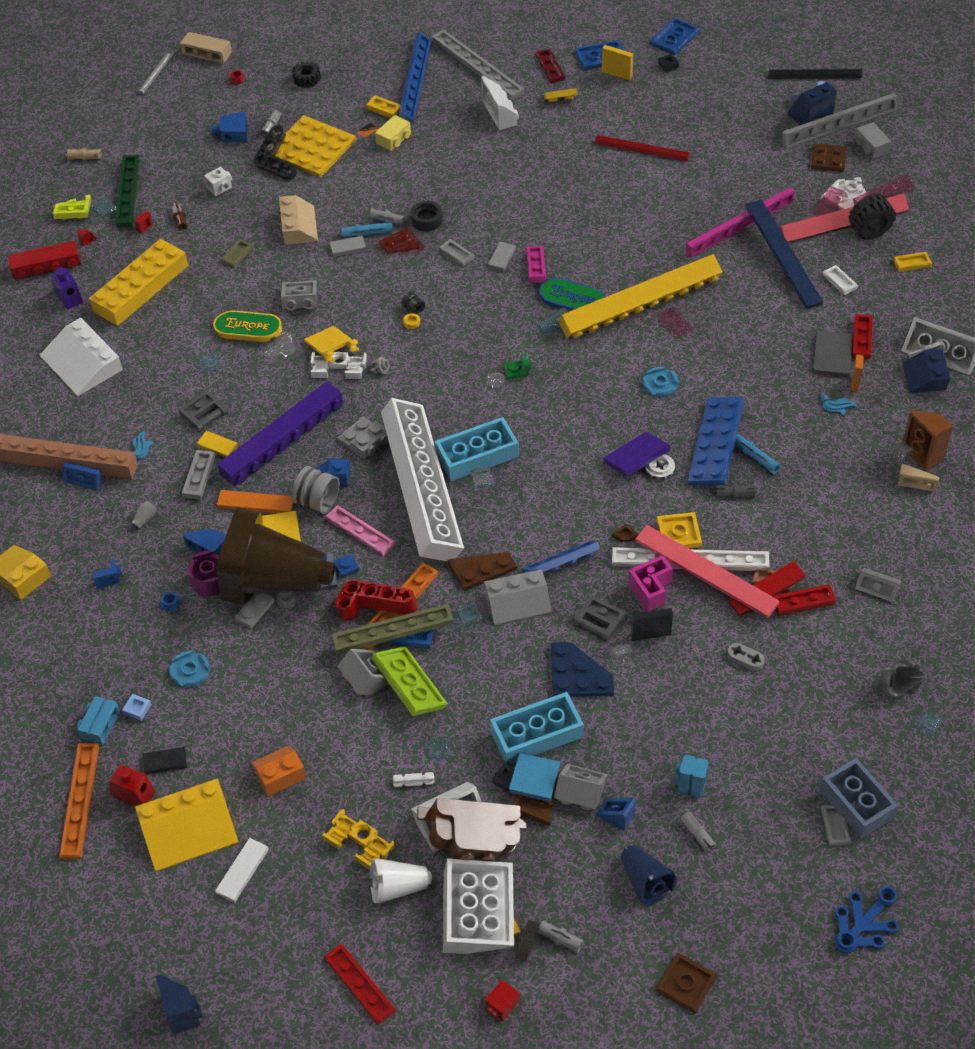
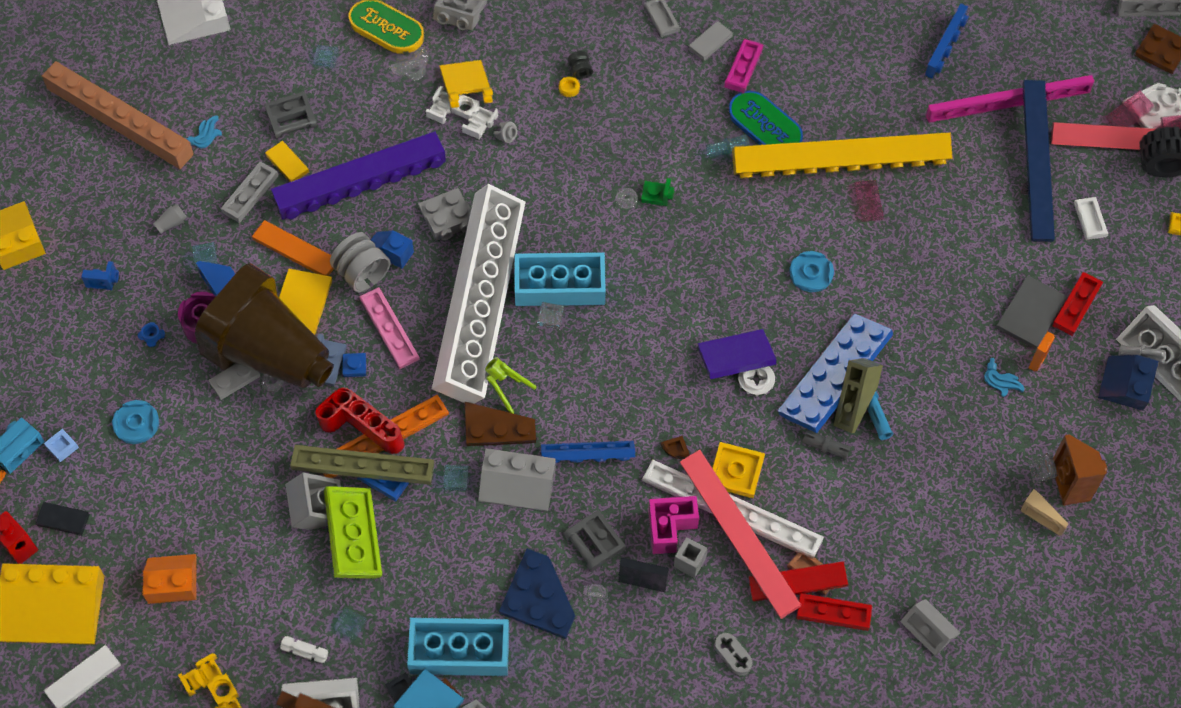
camera: 20 degrees right, 10 degrees up
(81, 475) = (127, 146): blue plate -> none
(184, 527) = (205, 253): none -> clear light blue plate
(466, 525) = (498, 370): none -> lime plant
(676, 206) = (944, 47): none -> blue plate
(679, 600) = (690, 557): none -> light grey brick
(741, 446) = (857, 392): none -> olive slope

